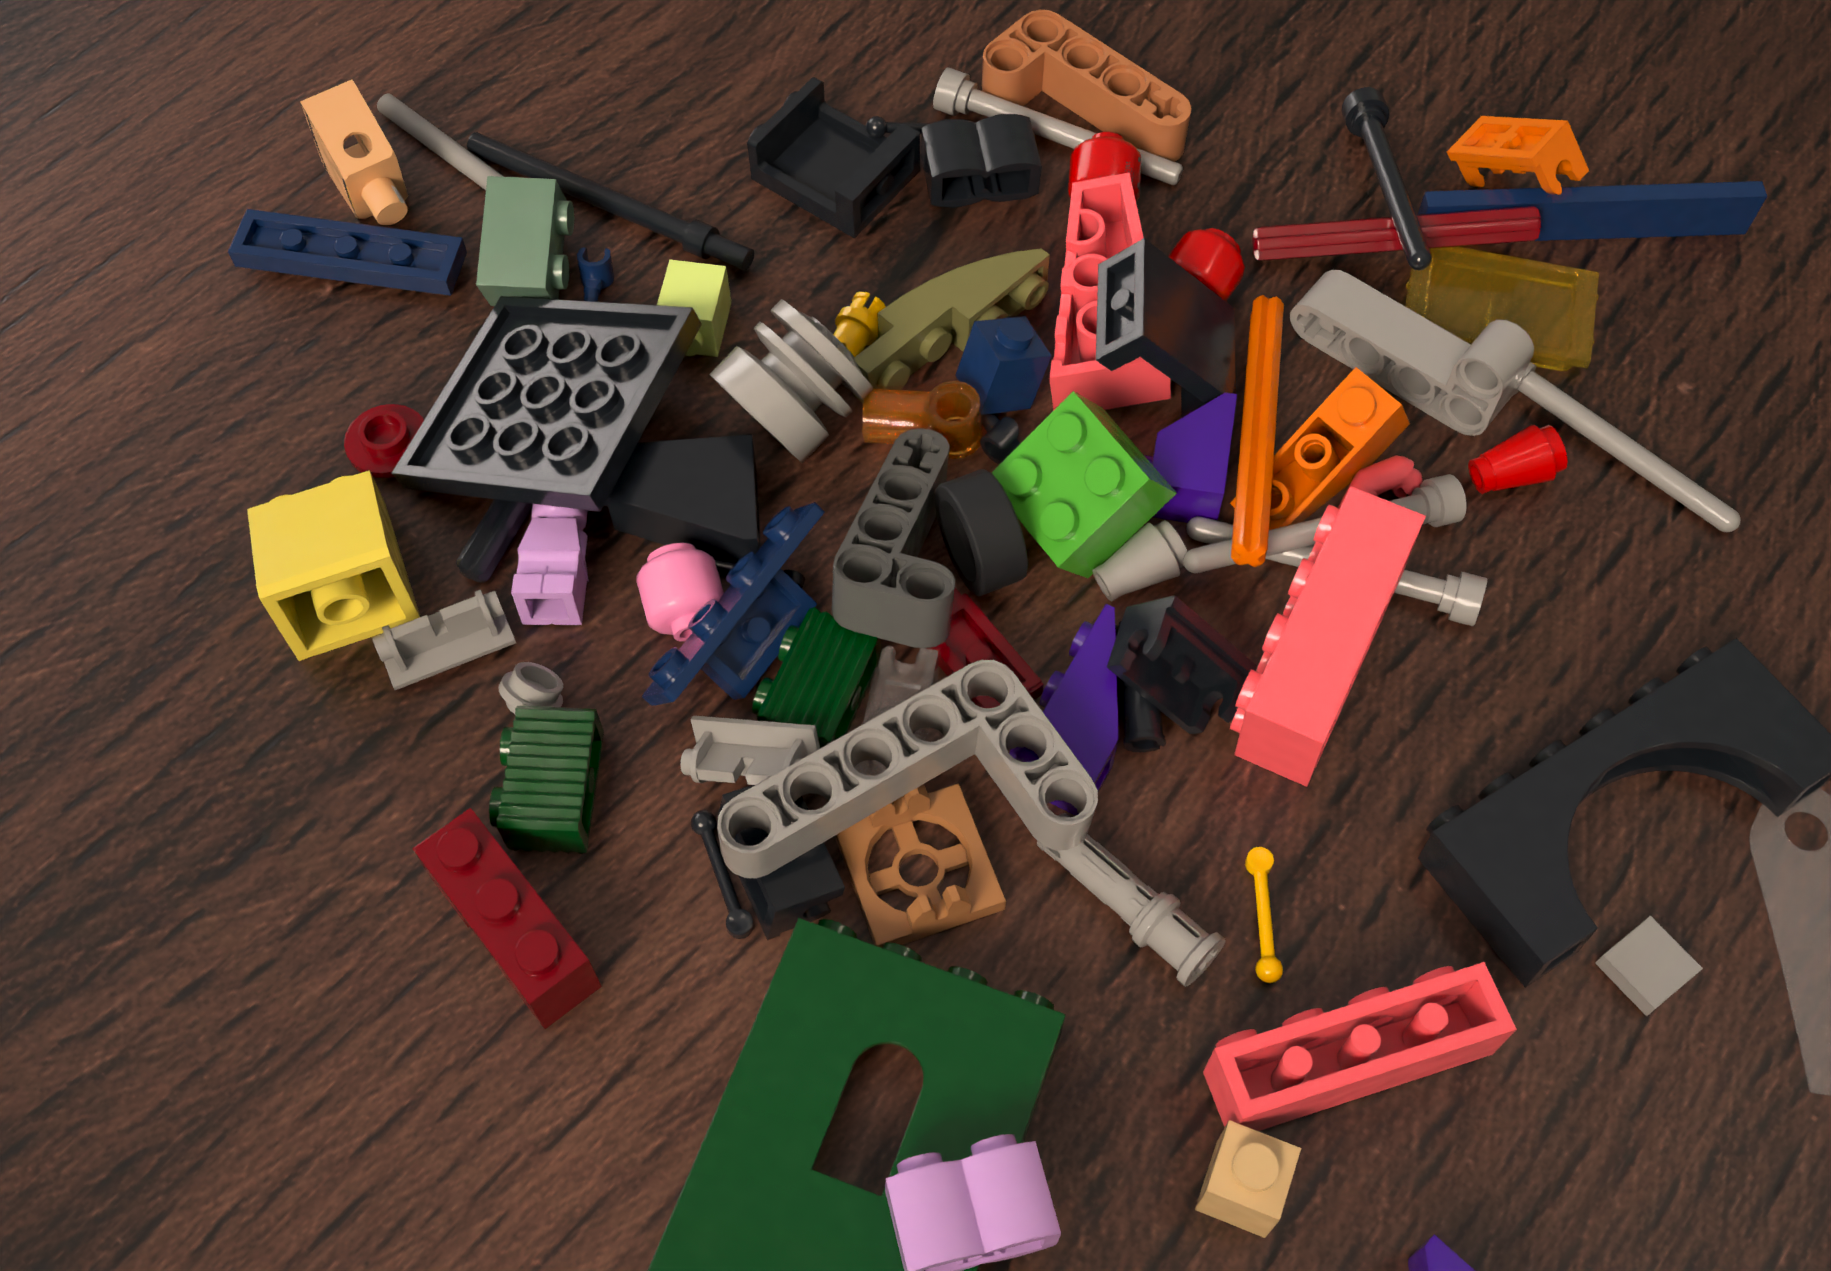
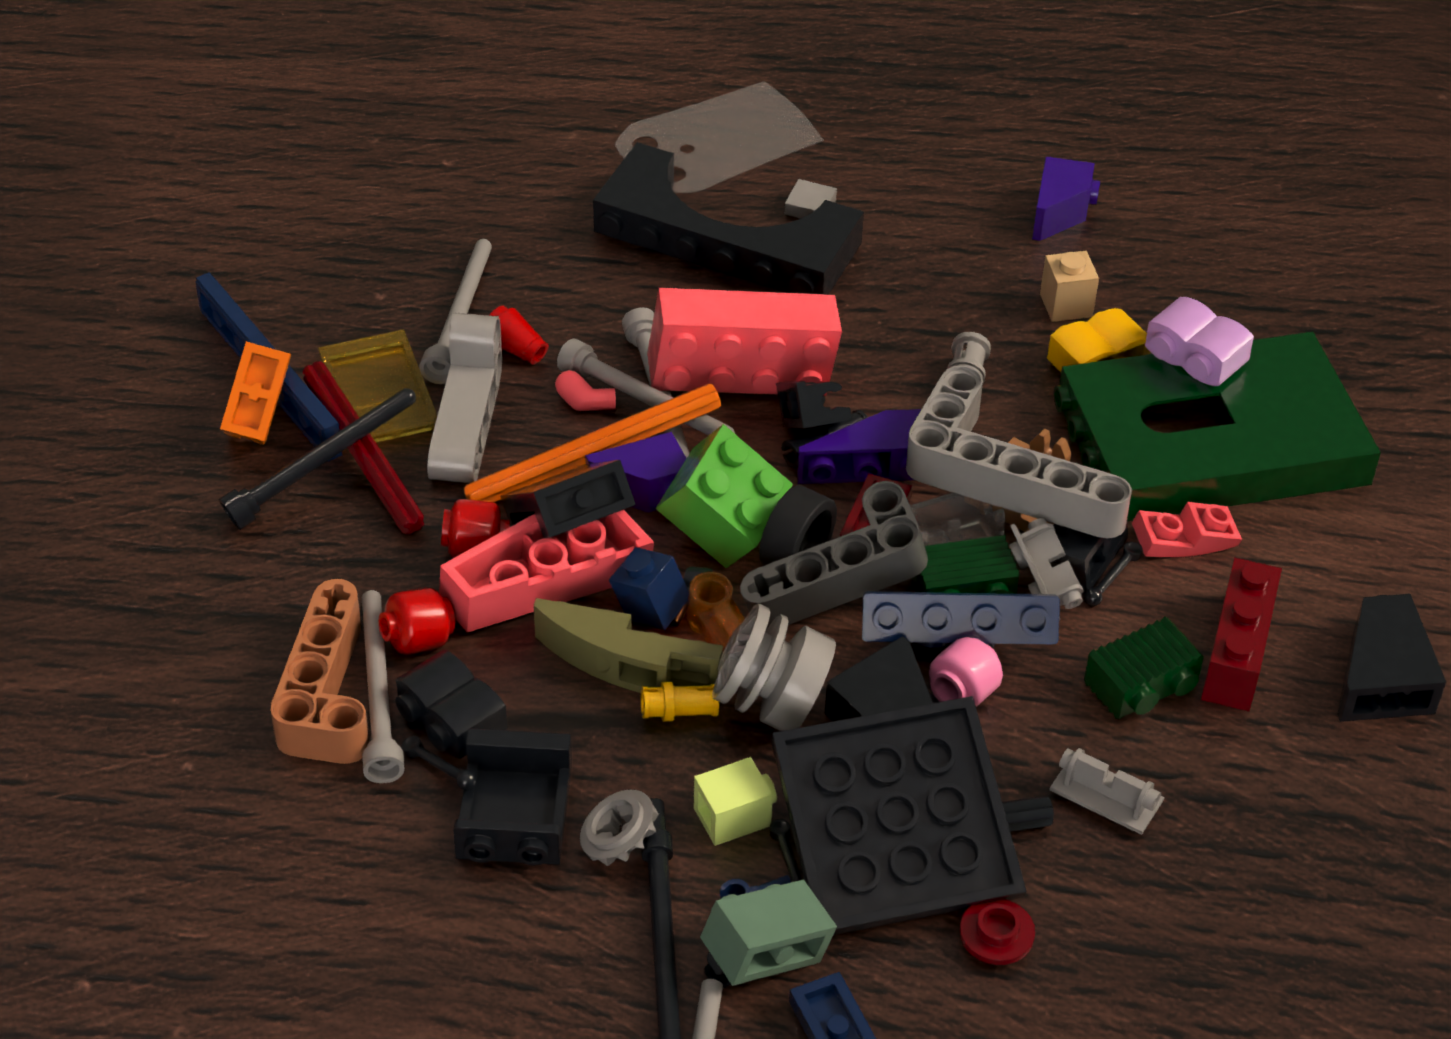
camera: 125 degrees left, 15 degrees down
(330, 565) = (1125, 865): light yellow slope -> none
(340, 1063) = (1390, 663): none -> black slope
(531, 686) = (1099, 714): light grey plate -> none
(552, 567) = (1021, 750): lavender piece -> none
(716, 1006) = (1194, 532): none -> coral slope
(734, 208) = (604, 822): none -> light grey gear
(1099, 1132) = (1101, 338): none -> yellow brick
(1259, 863) = (886, 358): yellow hinge -> none
(1332, 446) = (565, 406): orange slope -> none
(1358, 1048) = (971, 266): coral brick -> none

